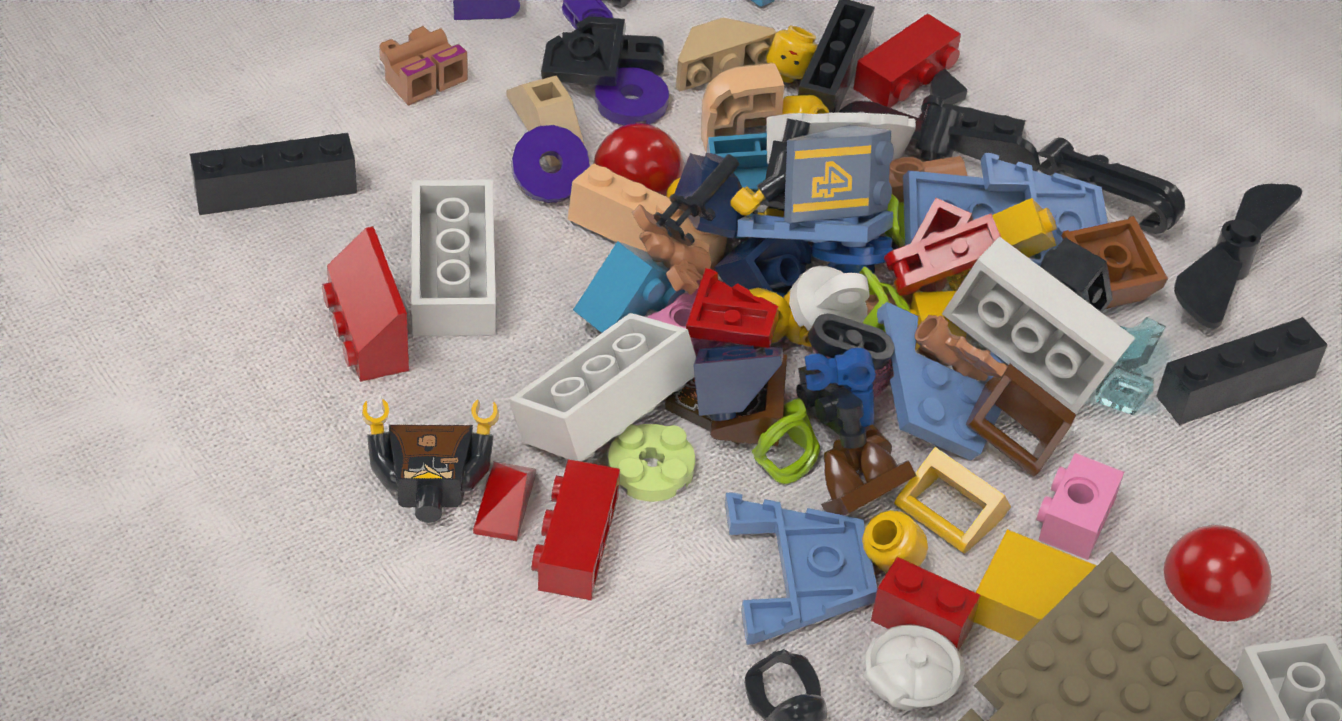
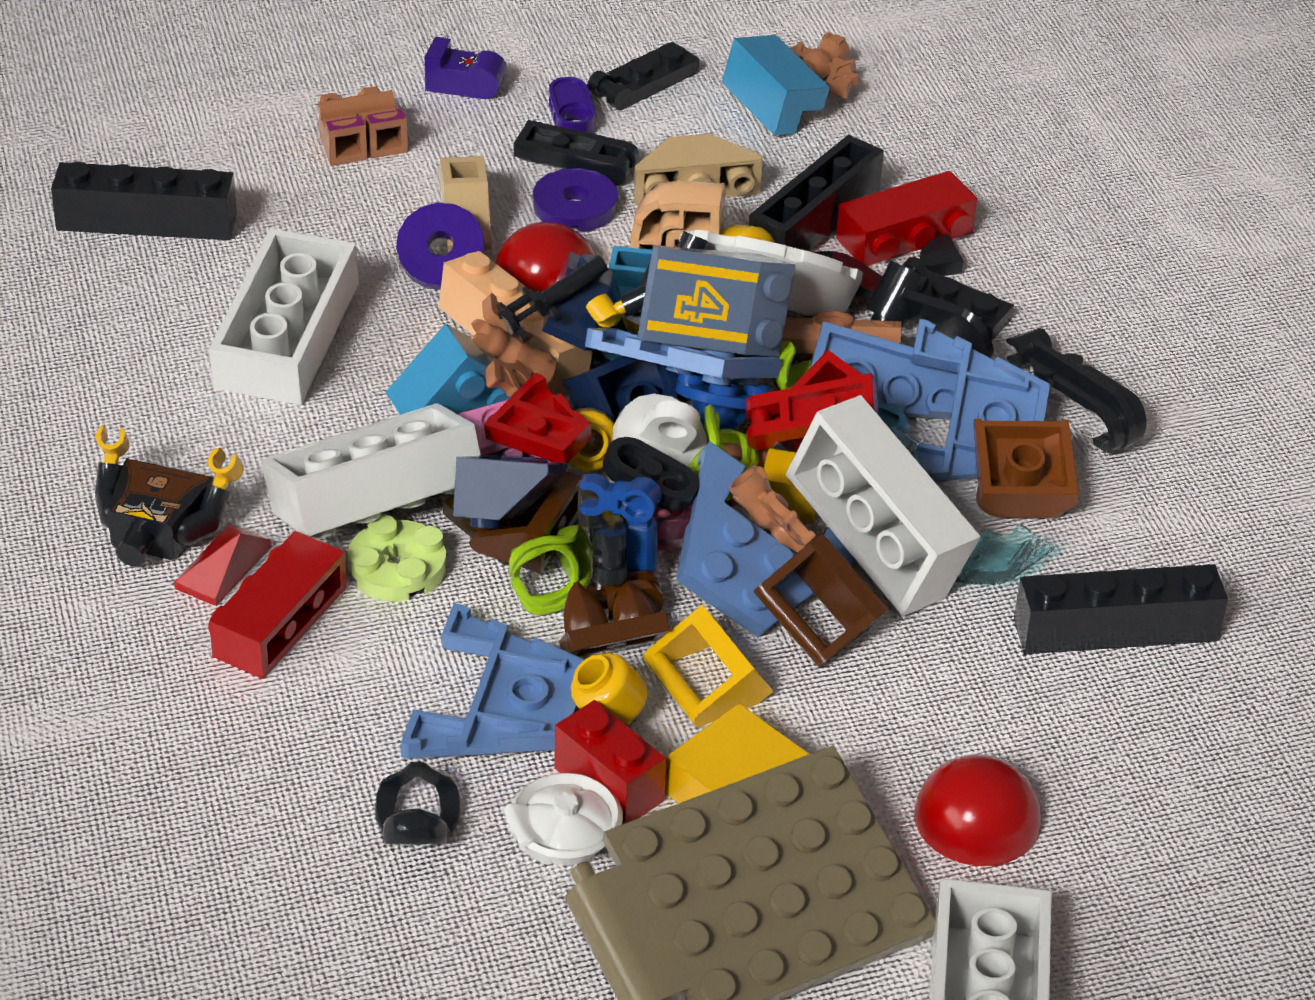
camera: 20 degrees right, 5 degrees down
(367, 309) = (167, 349): slope -> none
(588, 53) = (539, 145): black plate -> none
(792, 52) = (766, 178): yellow head -> none
(1027, 227) = (930, 409): yellow brick -> none
(1079, 506) = (848, 703): bright pink brick -> none
(1080, 272) = (951, 464): black brick -> none
(1124, 389) = (966, 598): clear light blue tile -> none
(1210, 281) = (1132, 512): black piece -> none

